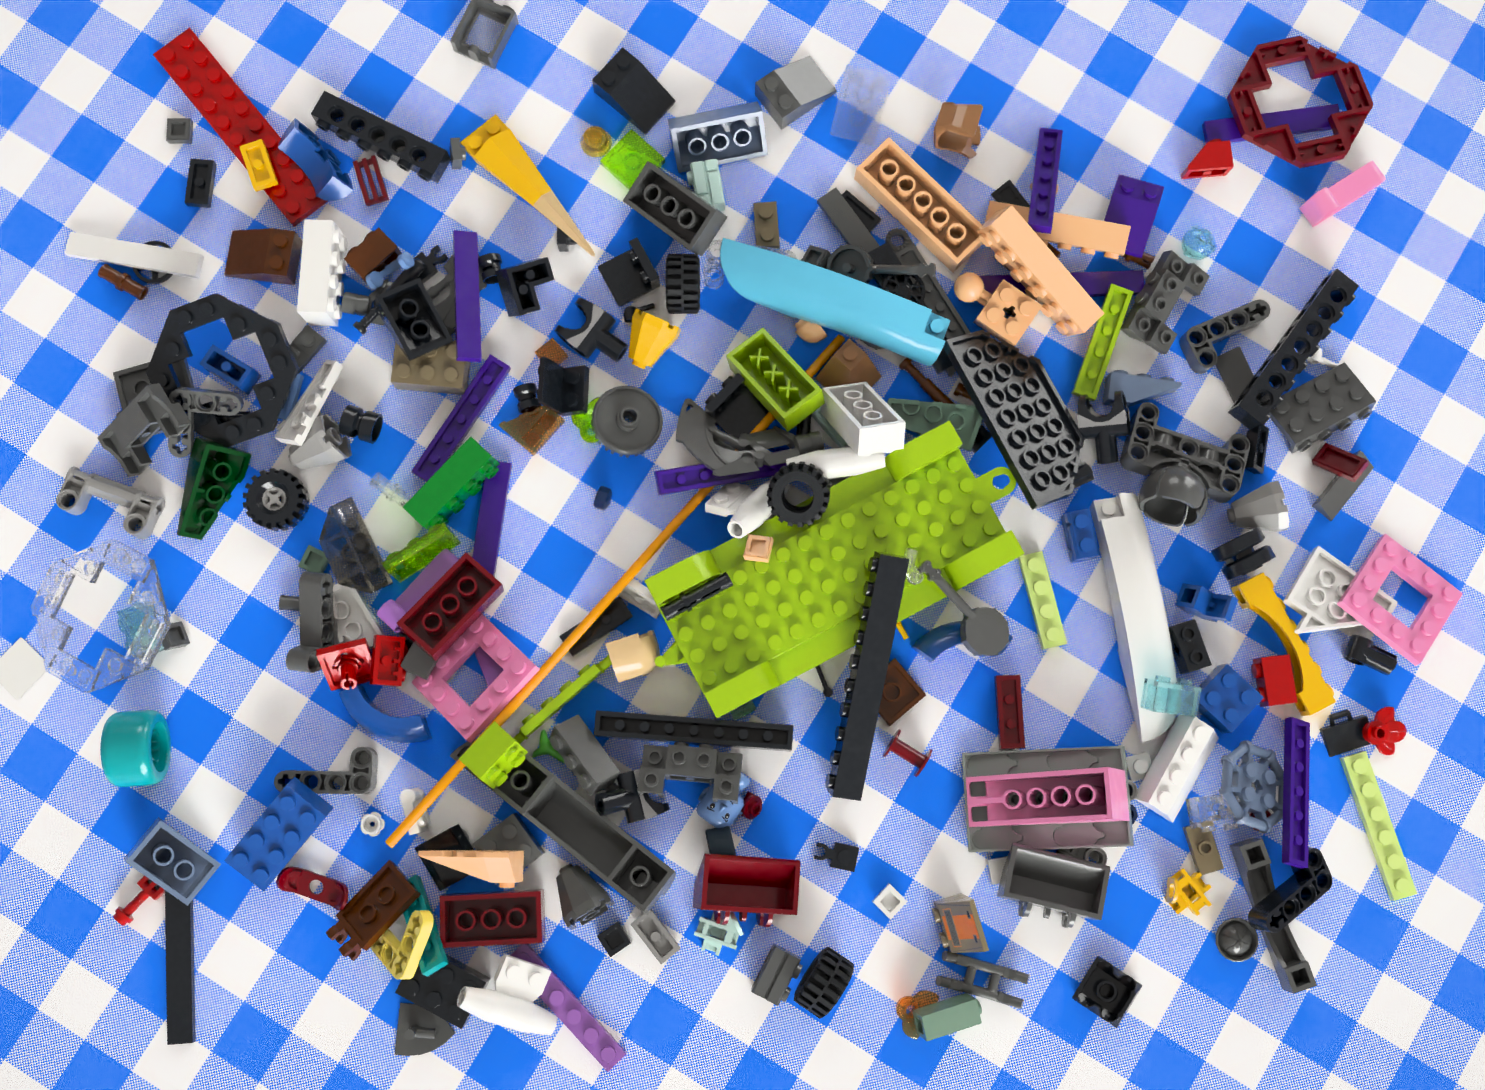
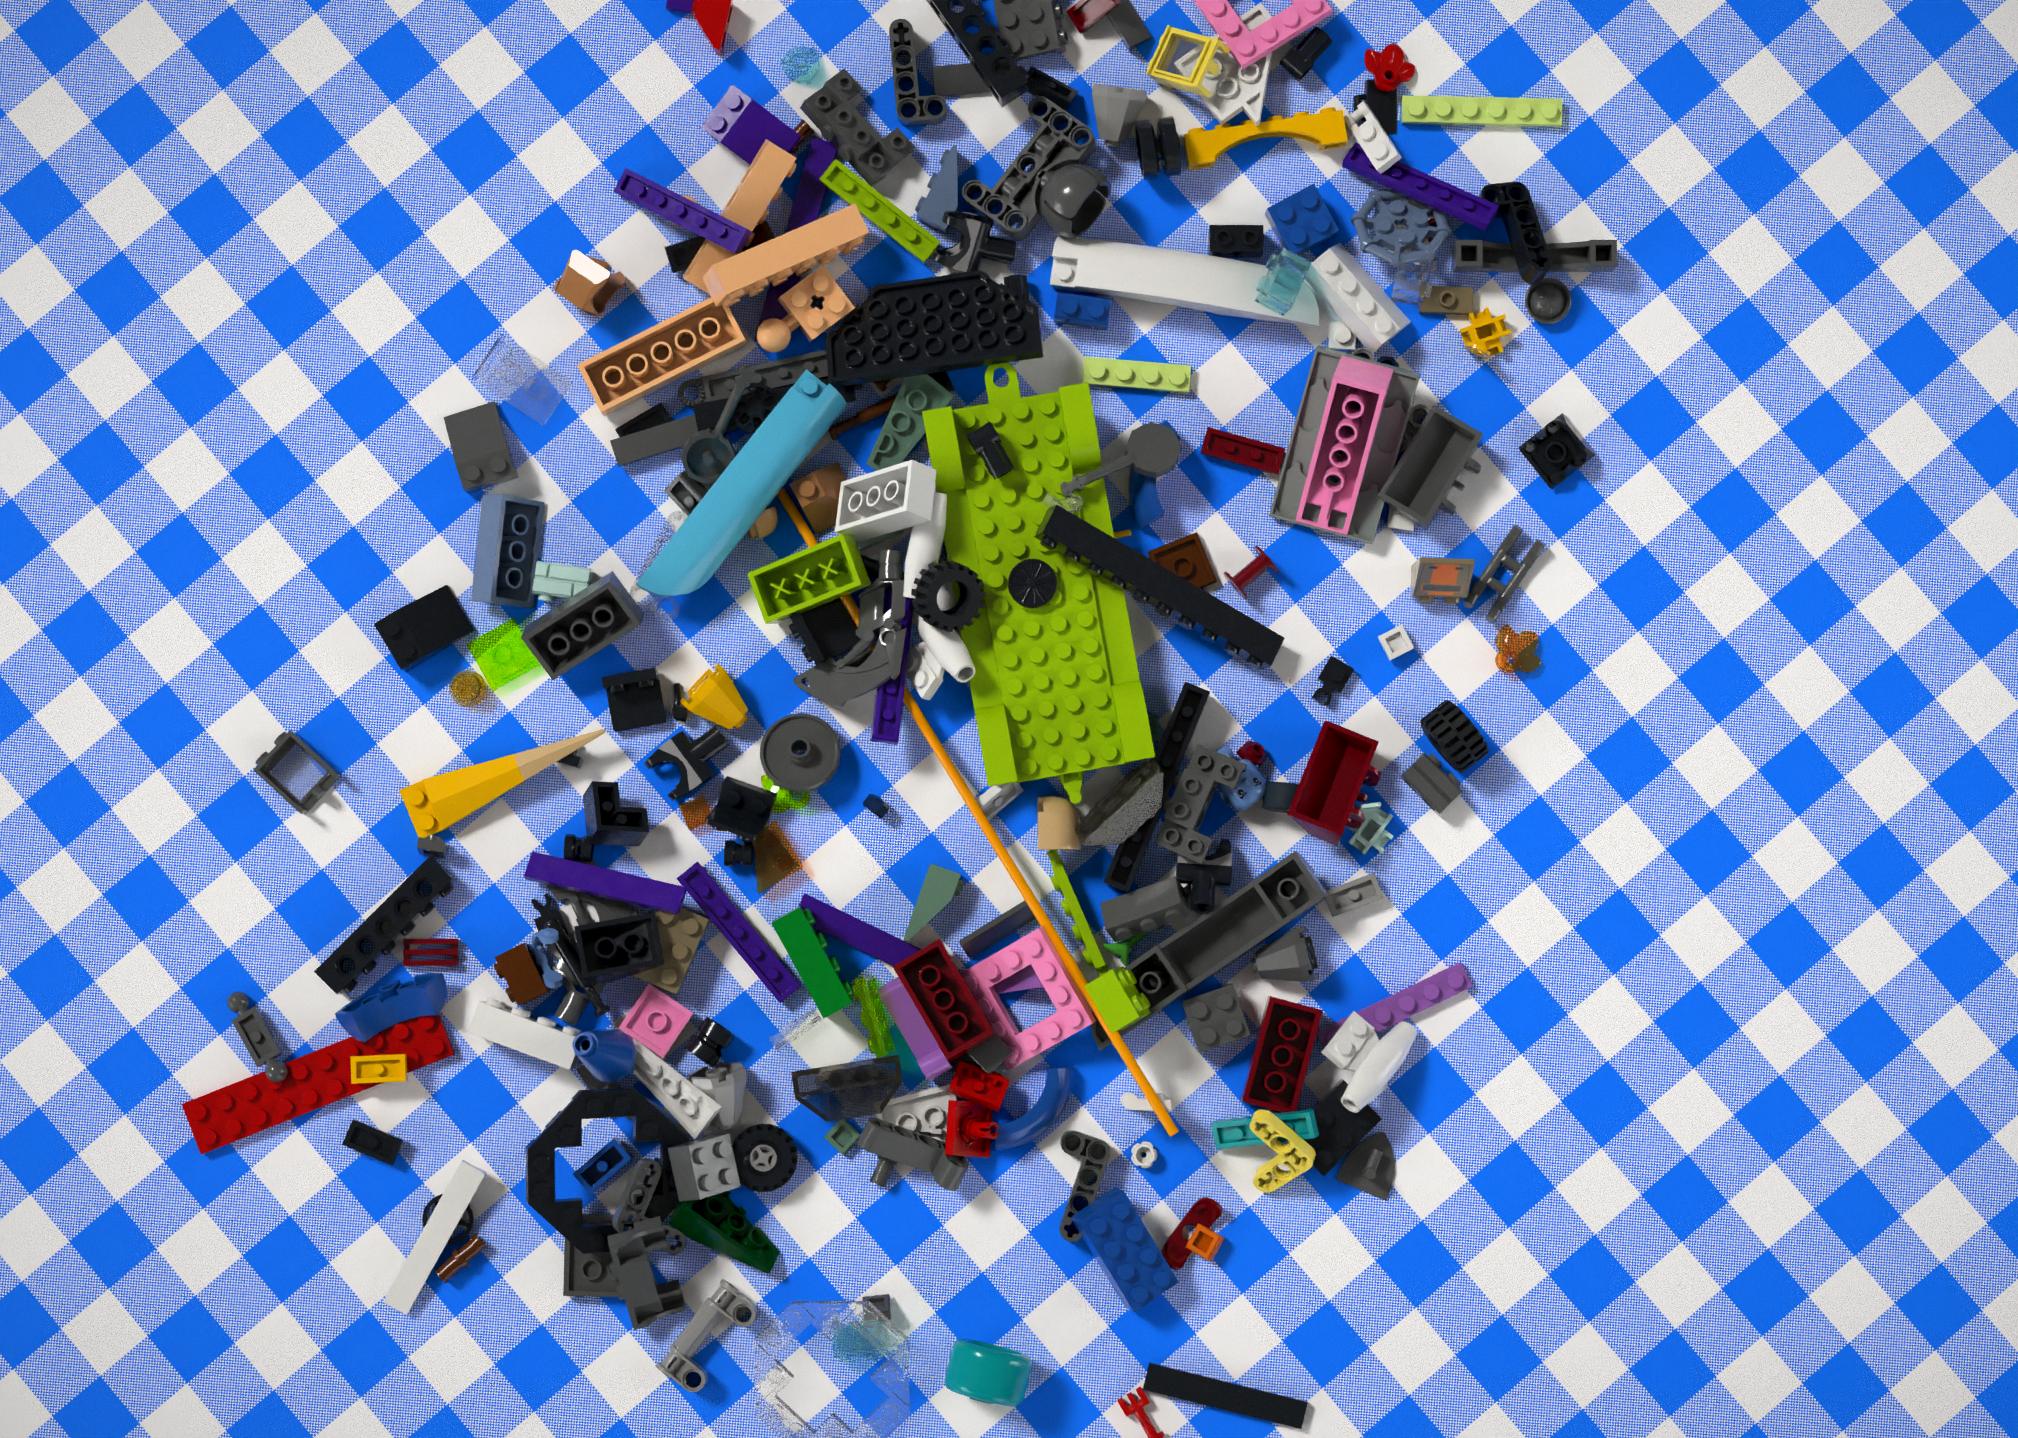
camera: 70 degrees left, 5 degrees up
(172, 861) = (1115, 1372): sand blue slope -> none
(179, 131) = (301, 1149): dark grey tile -> none
(247, 449) = (704, 1167): none -> dark grey brick
(260, 67) = (257, 1036): none -> dark grey plate
(264, 255) = (480, 1096): reddish brown slope -> none
(310, 903) = (1205, 1242): none -> orange slope
(320, 336) = (606, 1054): none -> blue cone
(366, 376) = (656, 1020): none -> bright pink plate
(373, 910) = (1233, 1176): reddish brown tile -> none
(451, 839) = (1204, 1083): black slope -> none
(489, 865) = (1228, 1037): light nougat wedge -> none
(527, 632) = (997, 929): none -> dark grey slope
(546, 572) = (936, 893): none -> sand green slope
(610, 619) = (1008, 834): black tile -> none
(614, 939) = (1342, 938): black tile -> none
(664, 706) = (1124, 807): none -> clear smoke wedge
(682, 283) = (669, 643): black tyre -> none
(687, 601) = (1020, 732): black pin -> none
(758, 548) = (990, 656): light nougat tile -> none
(766, 224) = (626, 531): dark tan plate -> none
(827, 691) = (1159, 634): black hinge -> none
(834, 563) = (1032, 583): none -> black wheel
(939, 486) = (987, 445): none -> black piece
(947, 1016) = (1528, 622): sand green brick -> none
(1205, 604) = (1196, 205): blue brick -> none
(1274, 680) = (1299, 163): red brick -> none
(1321, 736) = (1372, 138): none -> white plate
(1326, 550) = (1184, 60): none -> light yellow window

